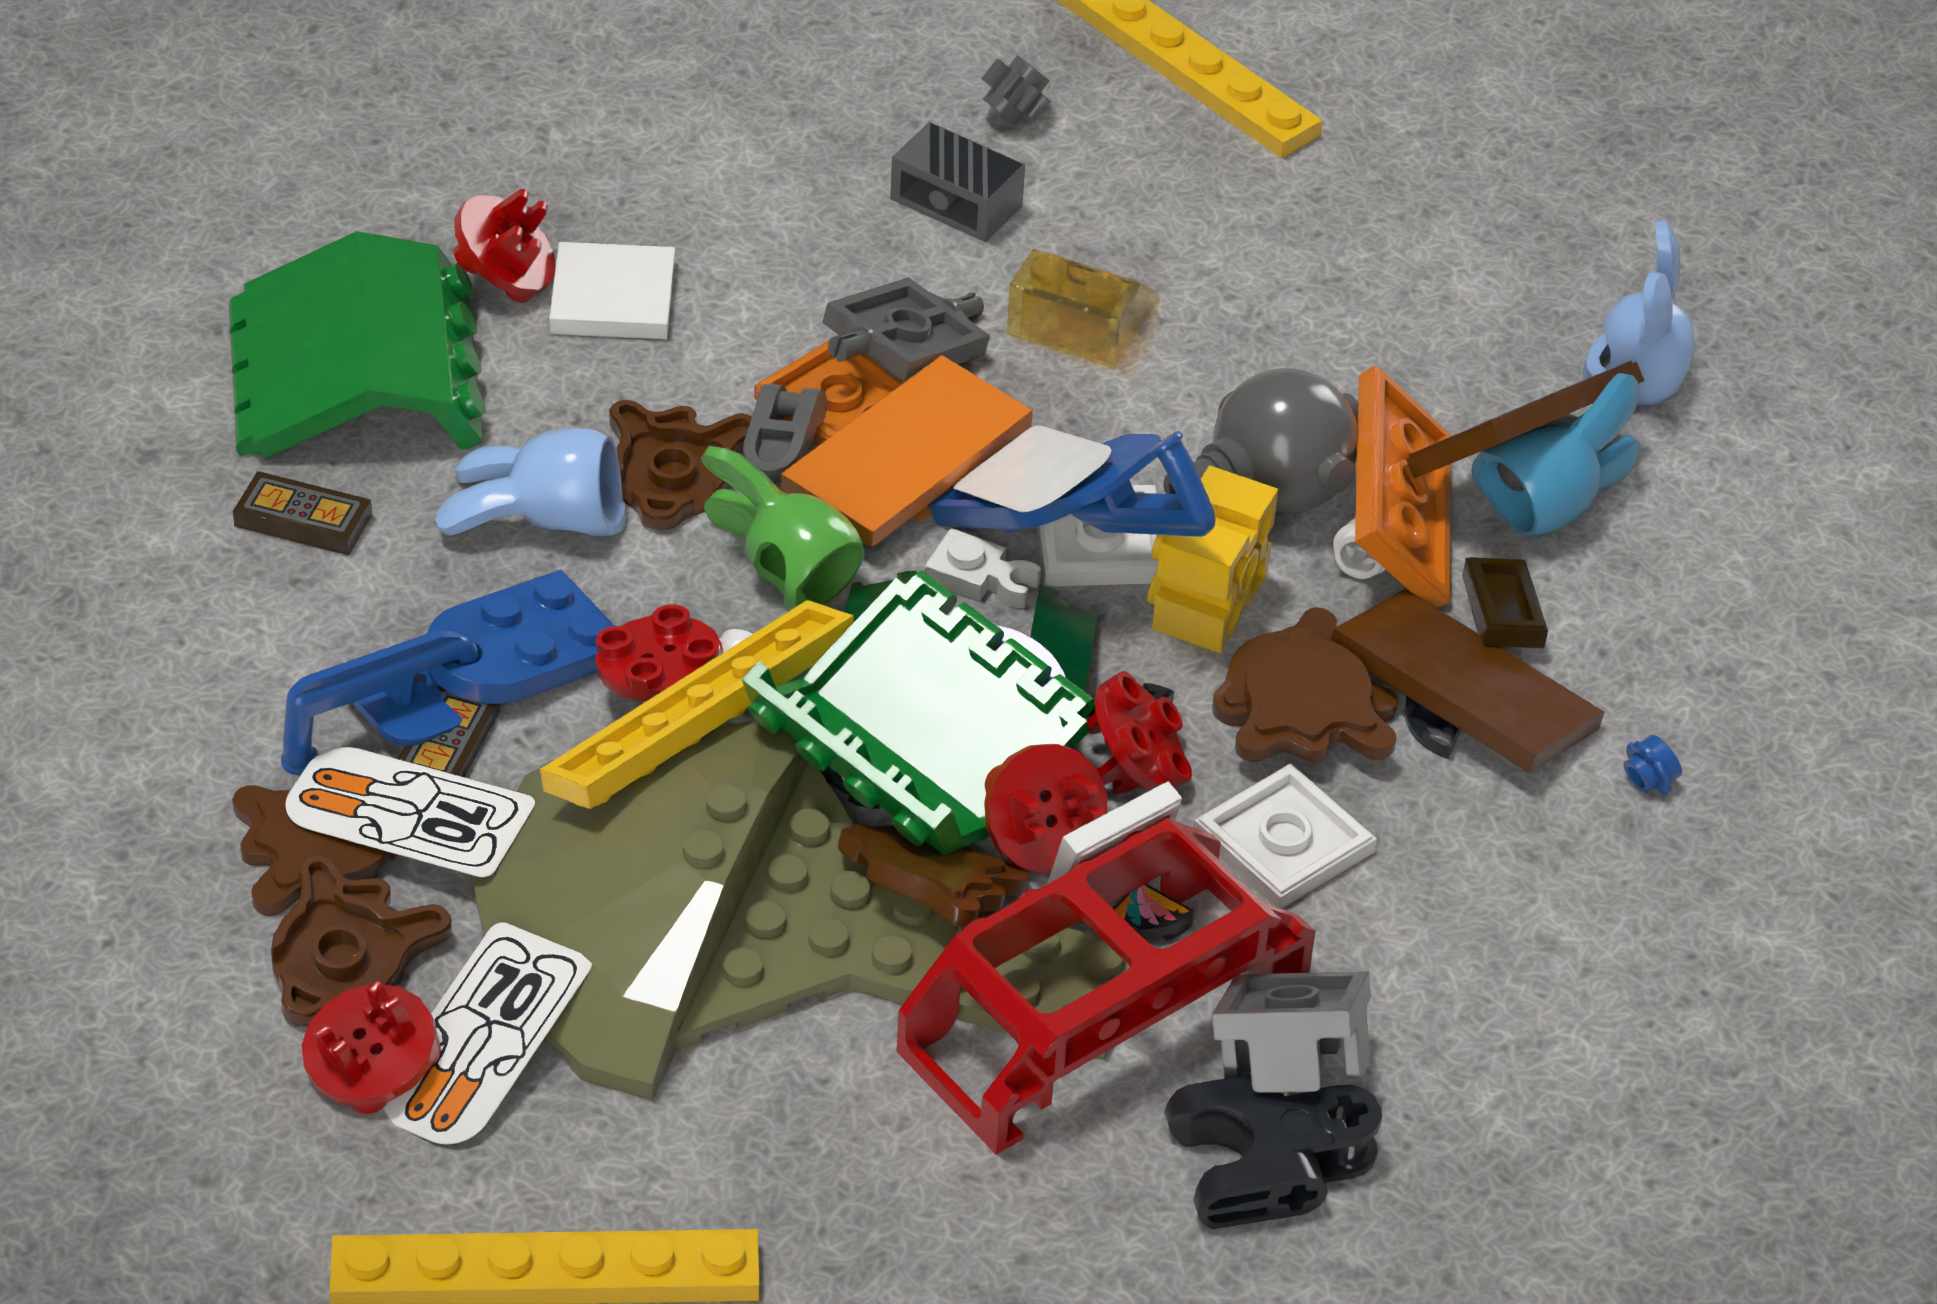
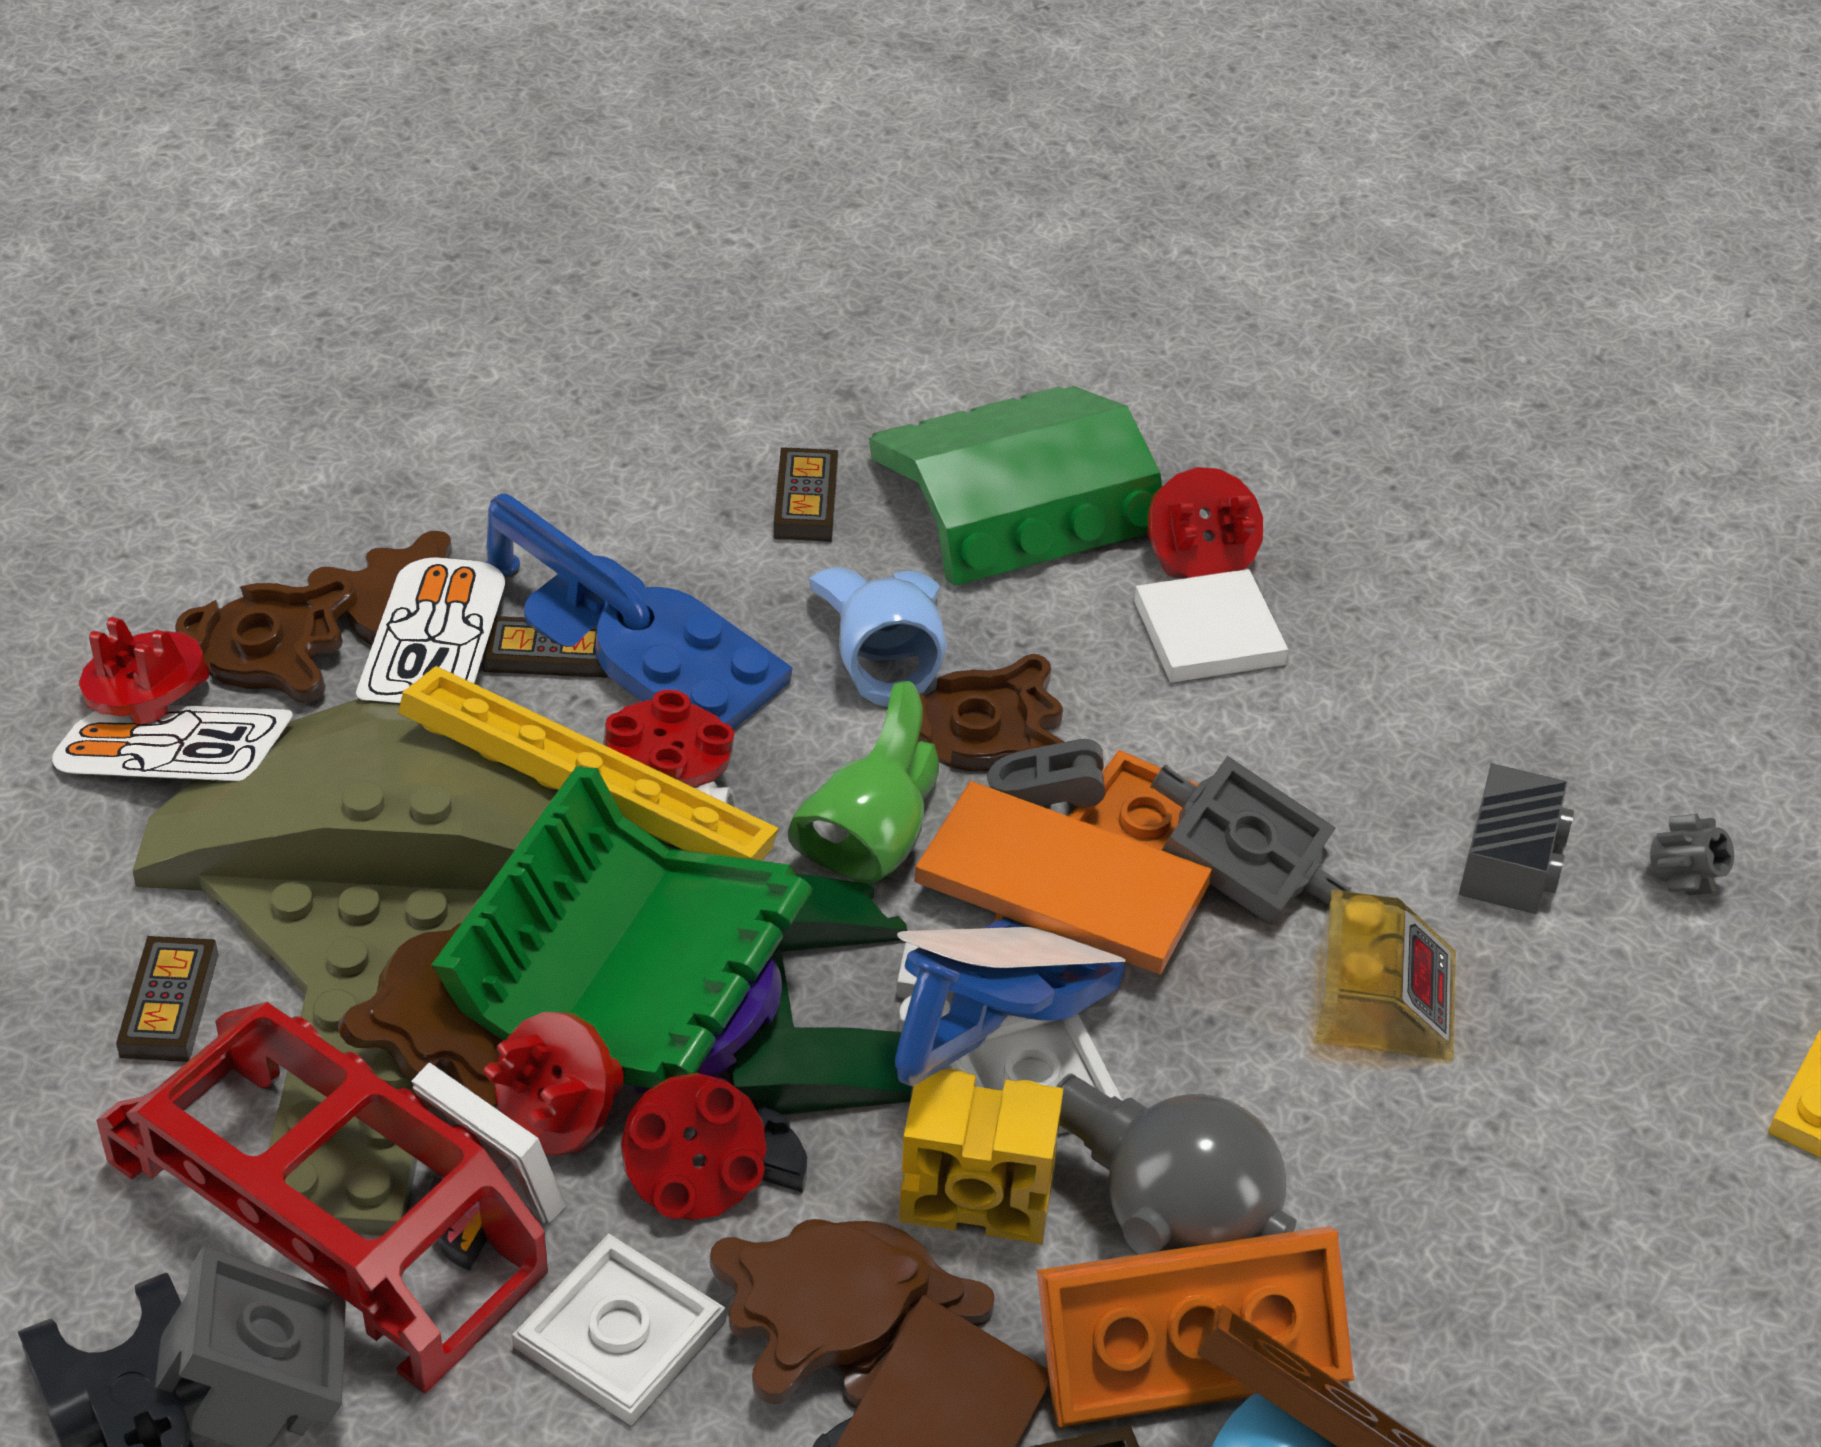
camera: 75 degrees right, 0 degrees up
(819, 1083) = (167, 999): none -> tile

